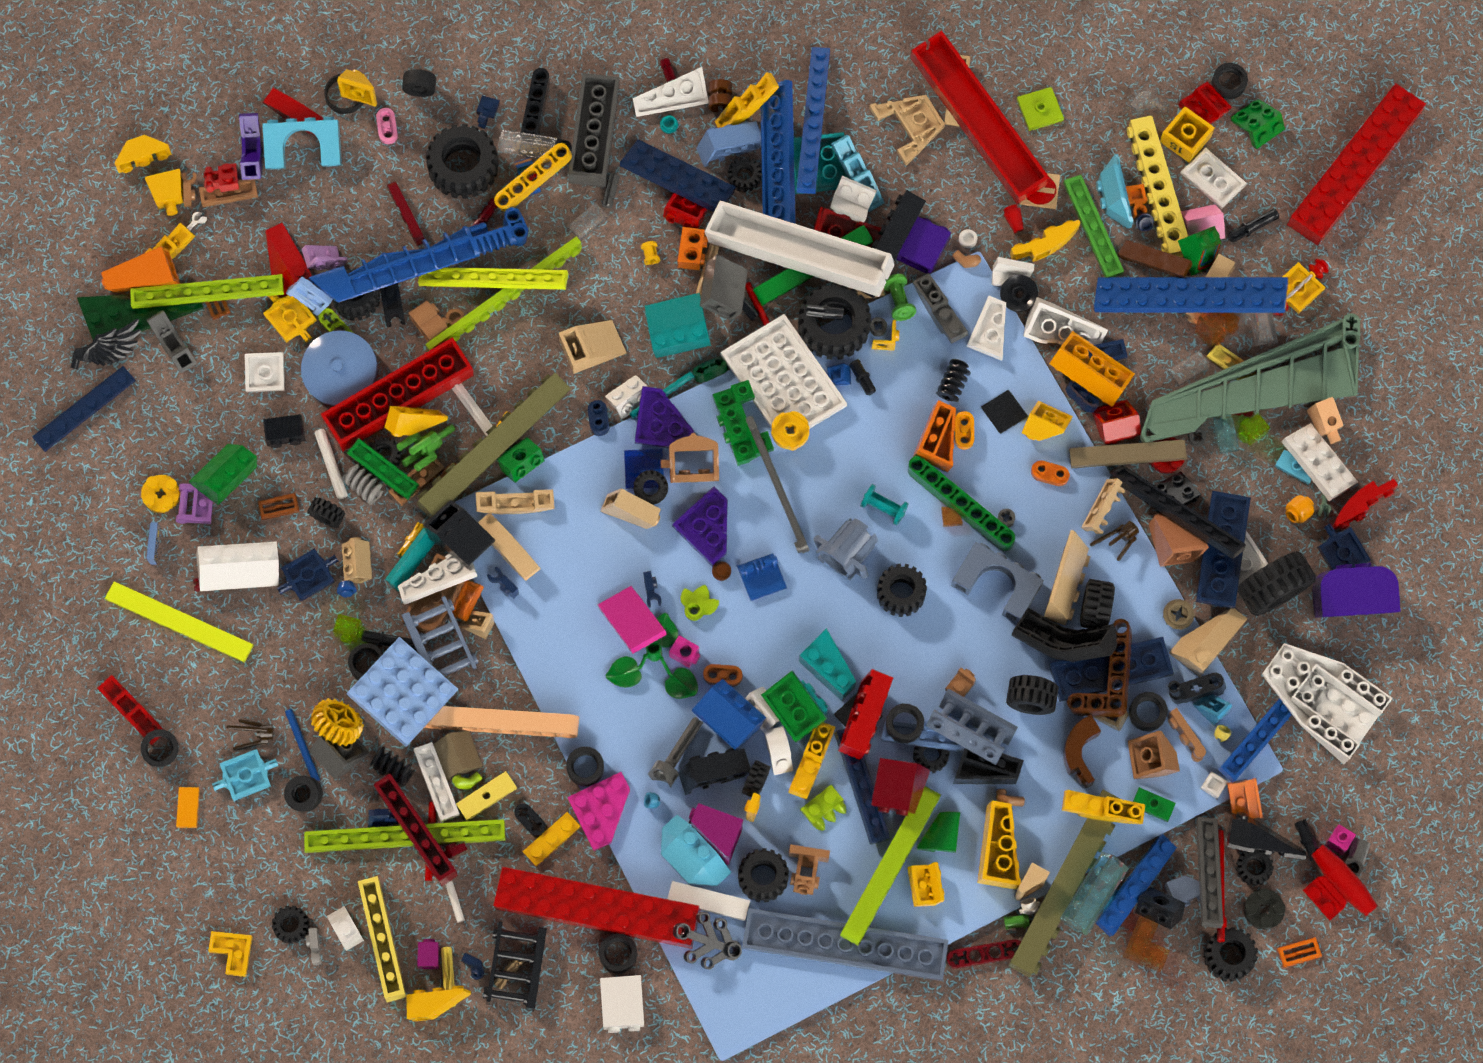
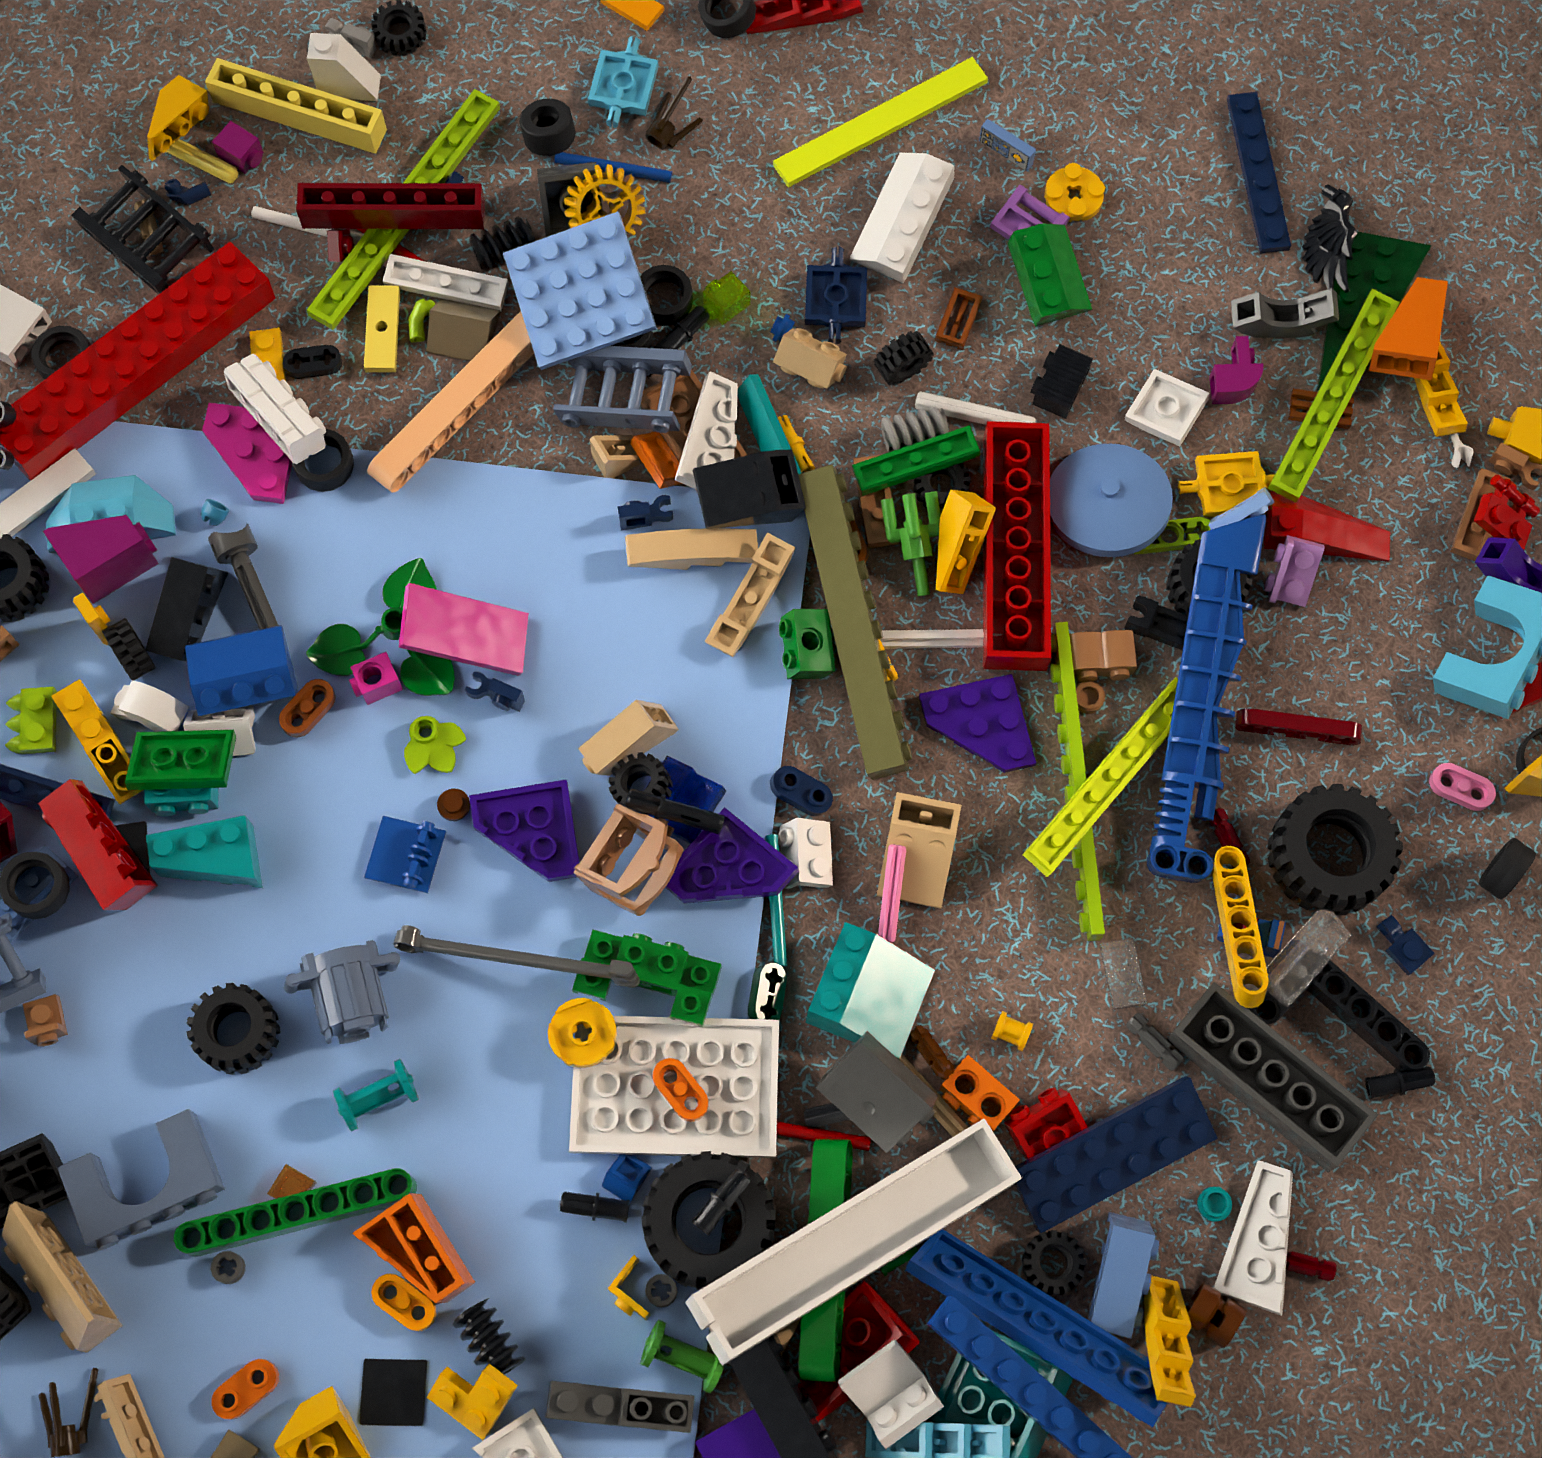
camera: 125 degrees right, 0 degrees up
(225, 344) = (1237, 380): none -> magenta brick
(501, 359) = (983, 720): none -> dark purple plate
(557, 78) = (1399, 1082): none -> black axle
(576, 802) = (275, 408): none -> white brick
(622, 342) = (892, 892): none -> bright pink axle
(658, 461) = (674, 811): none -> black axle
(686, 279) = (931, 1052): none -> reddish brown axle
(785, 371) = (681, 1090): none -> orange plate
(984, 367) = (476, 1405): none -> yellow plate

